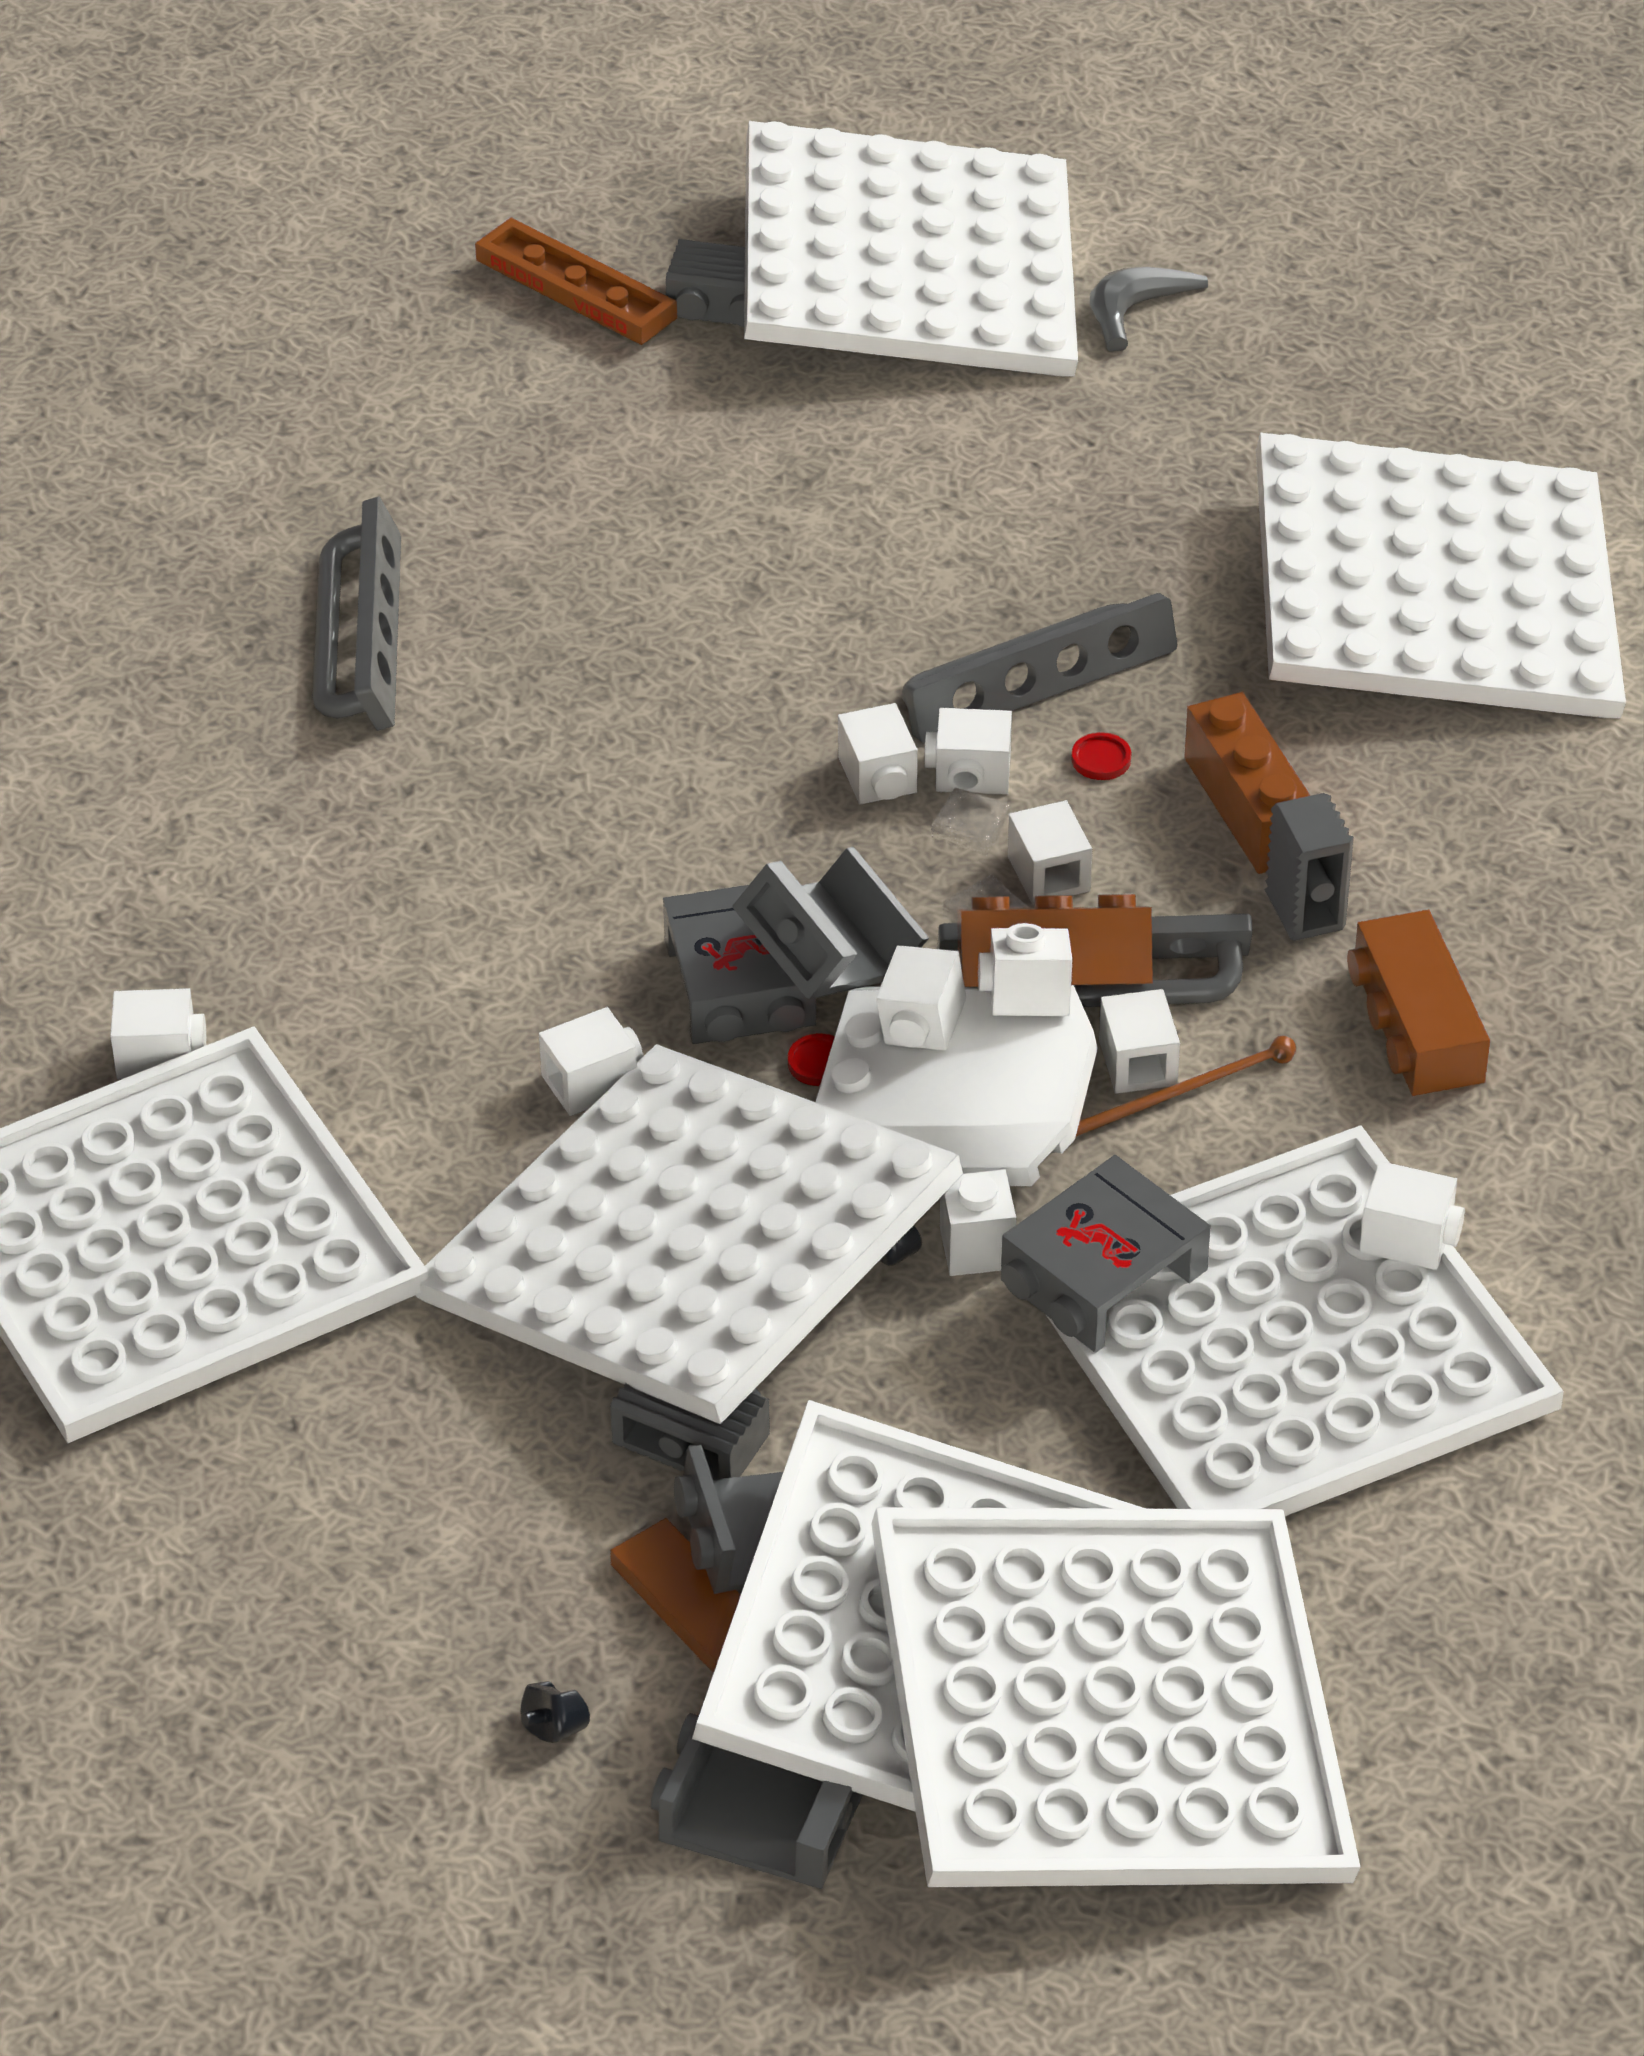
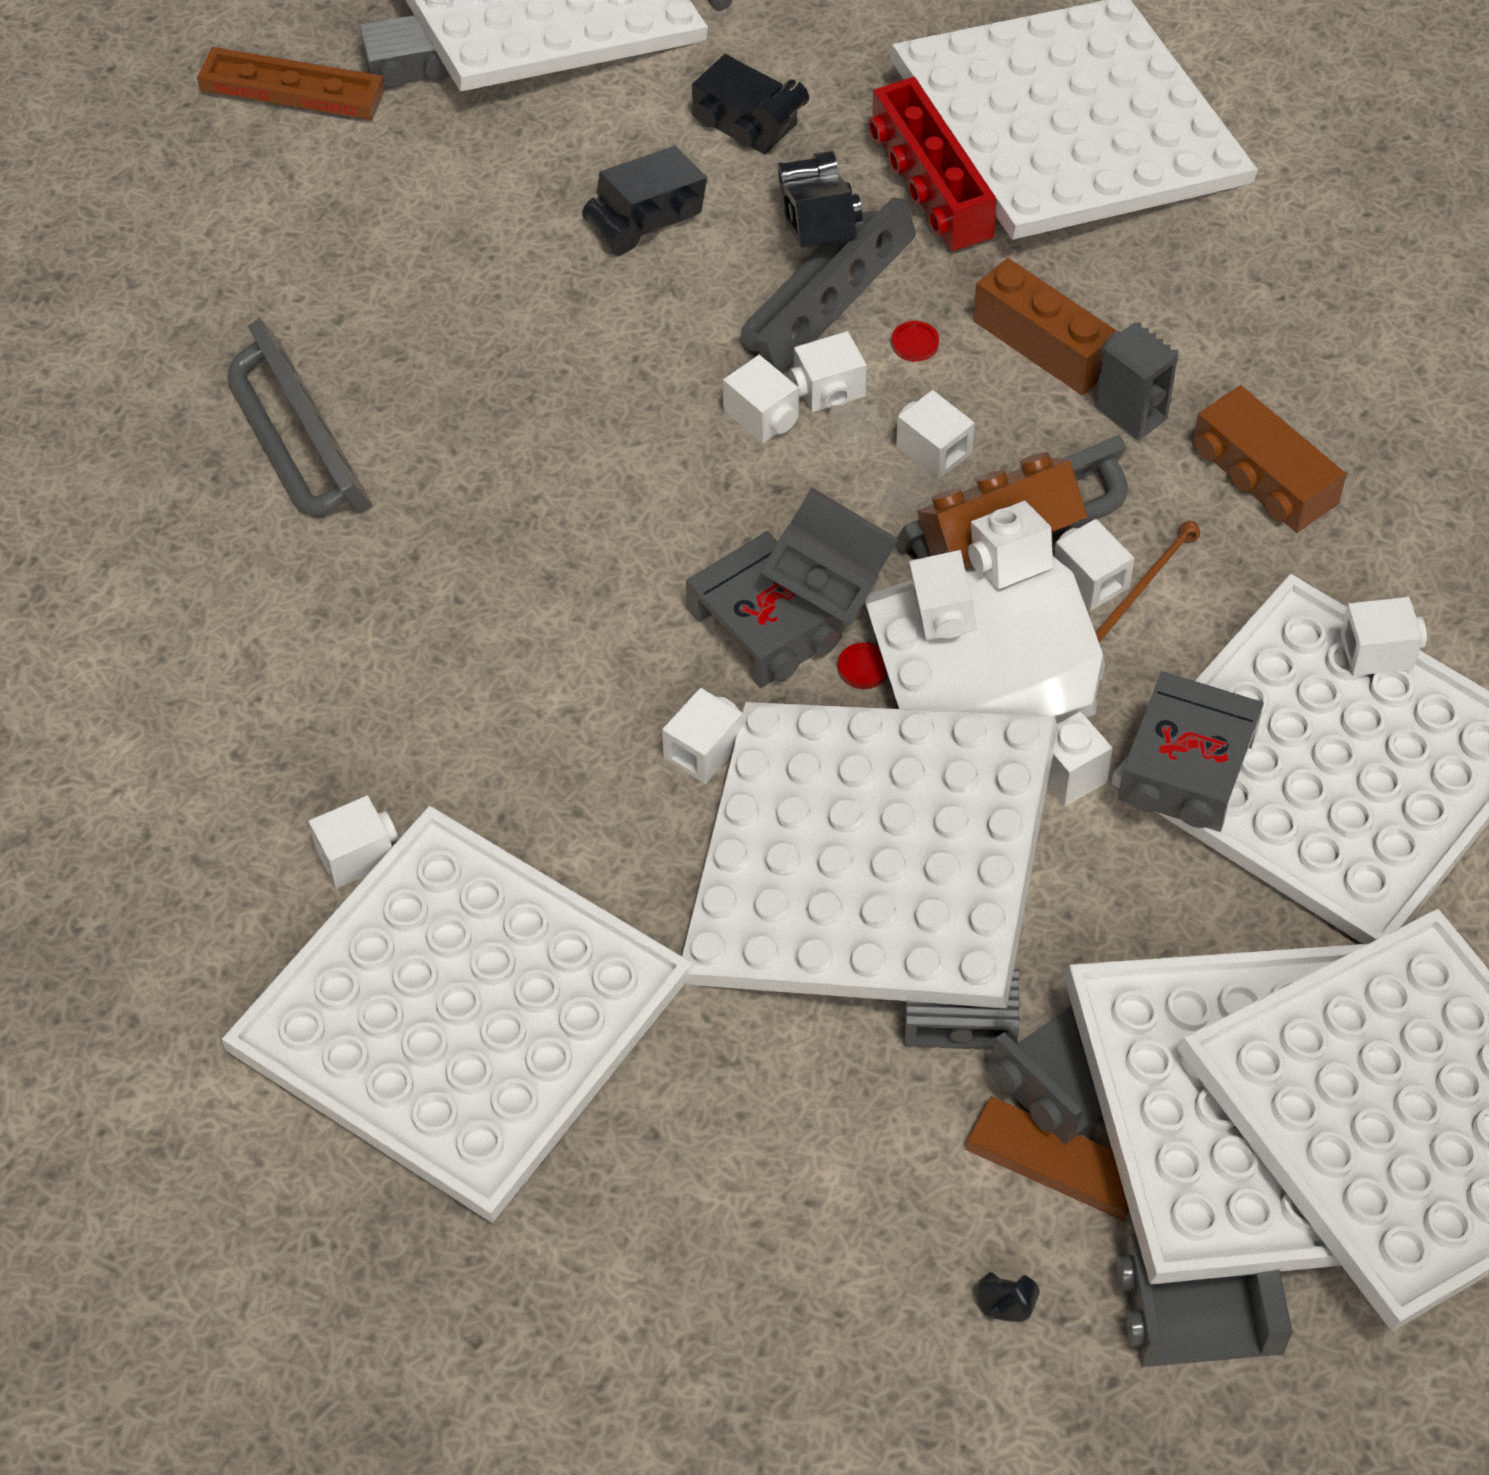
camera: 25 degrees left, 10 degrees up
(883, 510) = (644, 198): none -> black hinge
(1064, 451) = (746, 103): none -> black hinge
(1070, 568) = (818, 201): none -> black hinge
(1231, 573) = (932, 164): none -> red brick

